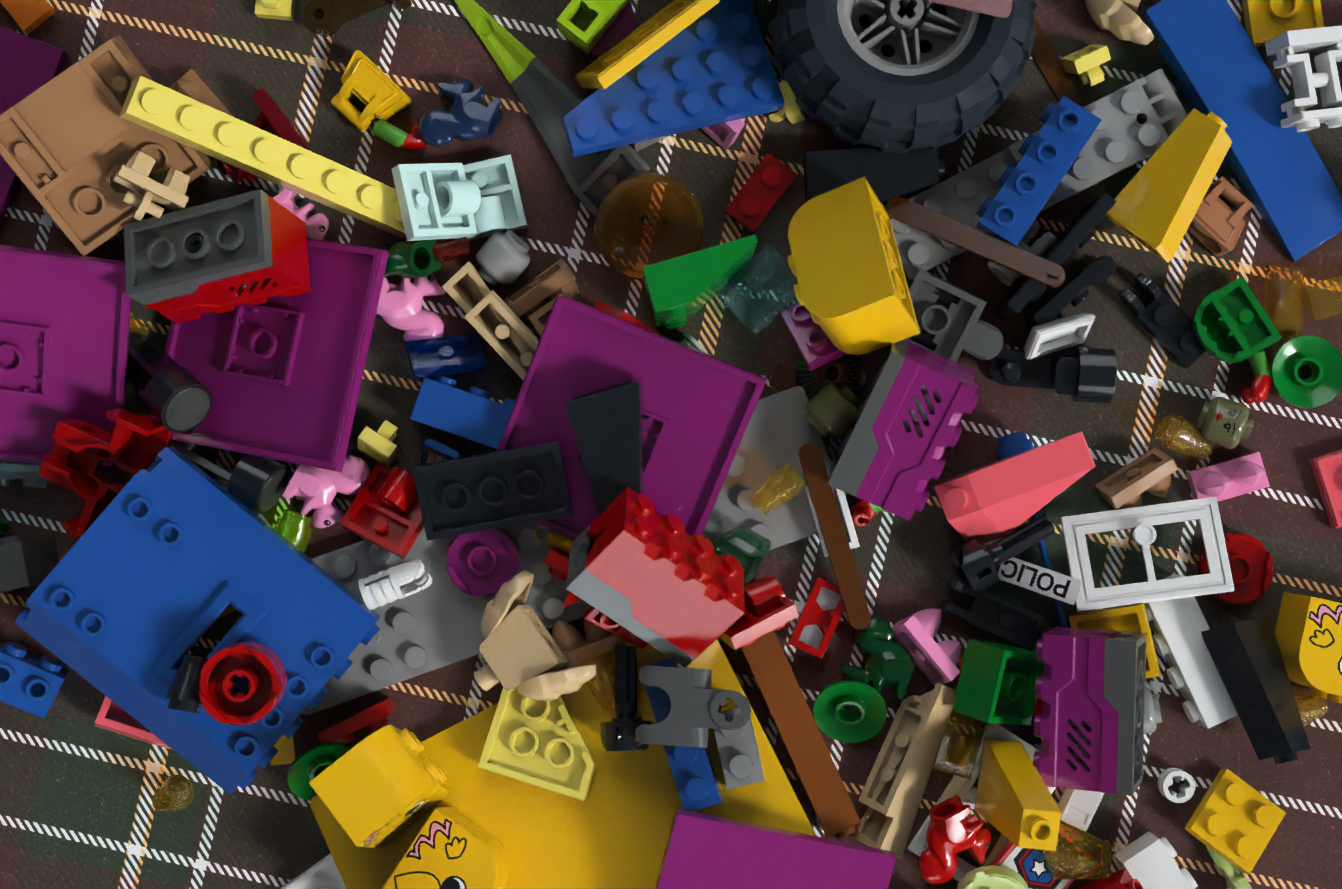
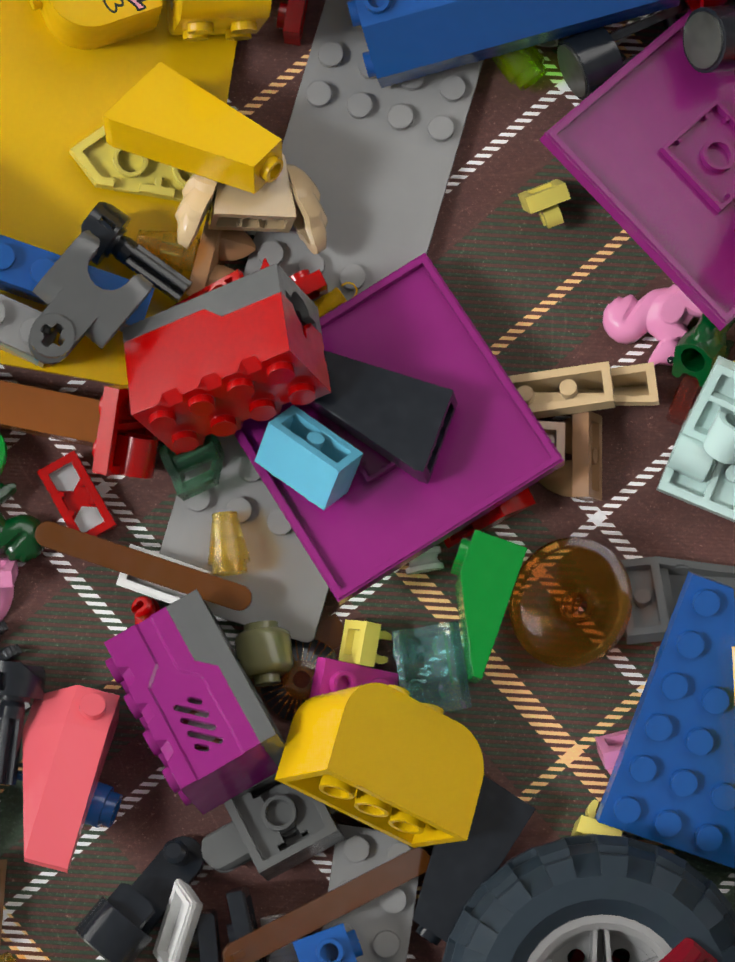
camera: 130 degrees right, 5 degrees down
(320, 486) = (539, 113): bright pink animal -> none
(386, 511) = (474, 166): red plate -> none
(394, 583) = (401, 119): white hinge -> none
(436, 451) = (491, 251): blue slope -> none
(445, 355) = (585, 320): clear blue plate -> none
(462, 412) = (520, 298): blue brick -> none
(482, 561) = (364, 218): magenta tile -> none
(493, 490) = (421, 271): black plate -> none
(503, 258) = (641, 443): light grey head -> none
(509, 720) = (193, 131): none -> yellow slope
(682, 471) = (306, 456): none -> medium azure brick
(760, 193) = (528, 740): red piece -> none
(778, 350) = (361, 643): none -> light yellow tile

